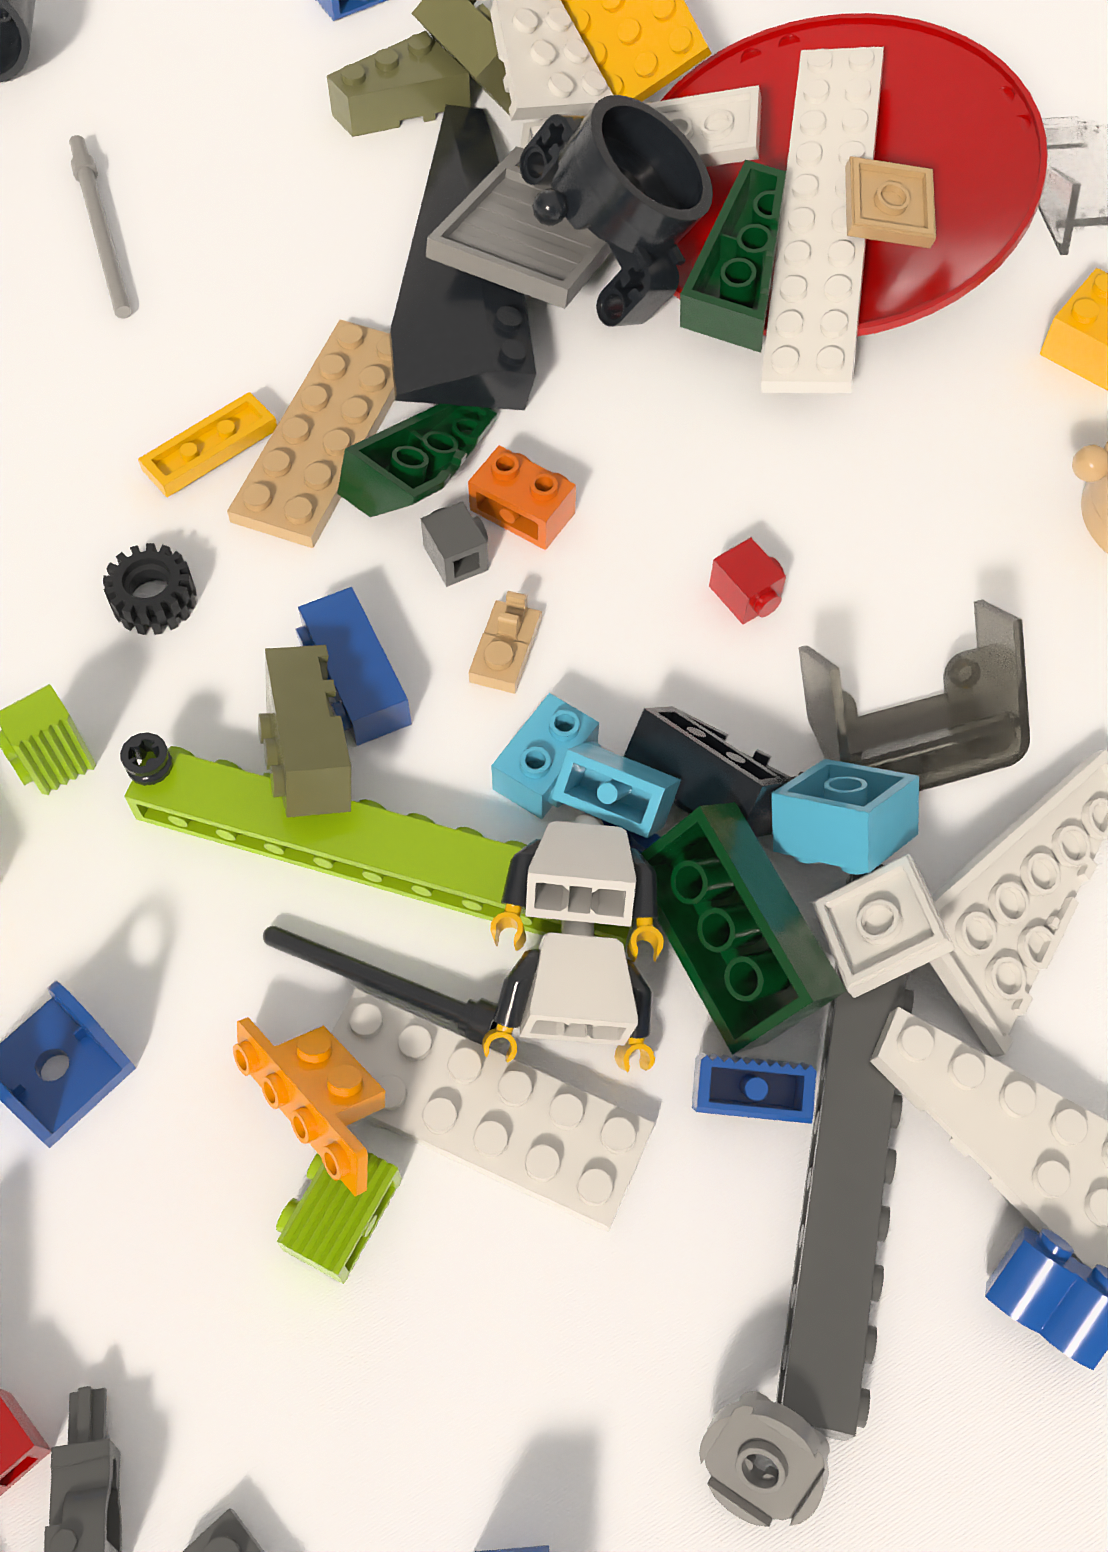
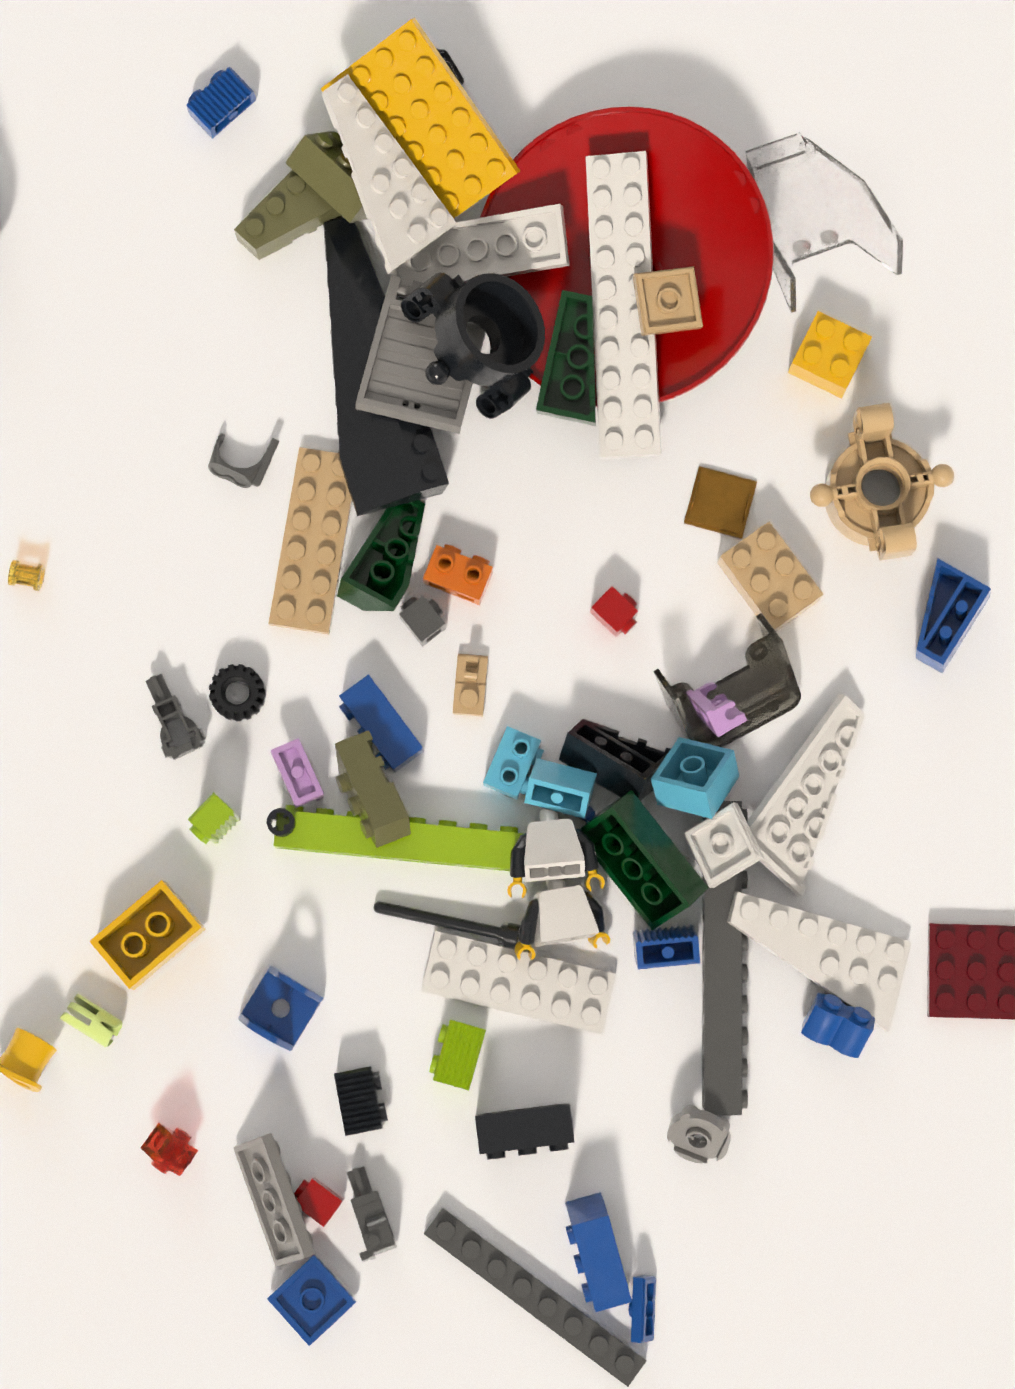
camera: 10 degrees left, 20 degrees up
(39, 594) = (168, 709): none -> dark grey piece
(86, 172) = (74, 341): light grey bar -> none
(134, 1258) = (360, 1101): none -> black brick
(199, 700) = (297, 773): none -> lavender panel
(208, 444) = (240, 571): yellow plate -> none
(249, 337) = (241, 476): none -> dark grey helmet
(318, 1091) = (434, 997): light orange bracket -> none
(421, 1373) = (524, 1130): none -> black brick
(888, 724) = (718, 713): none -> lavender hinge
(926, 484) = (720, 502): none -> pearl gold piece
(997, 558) = (770, 577): none -> tan brick

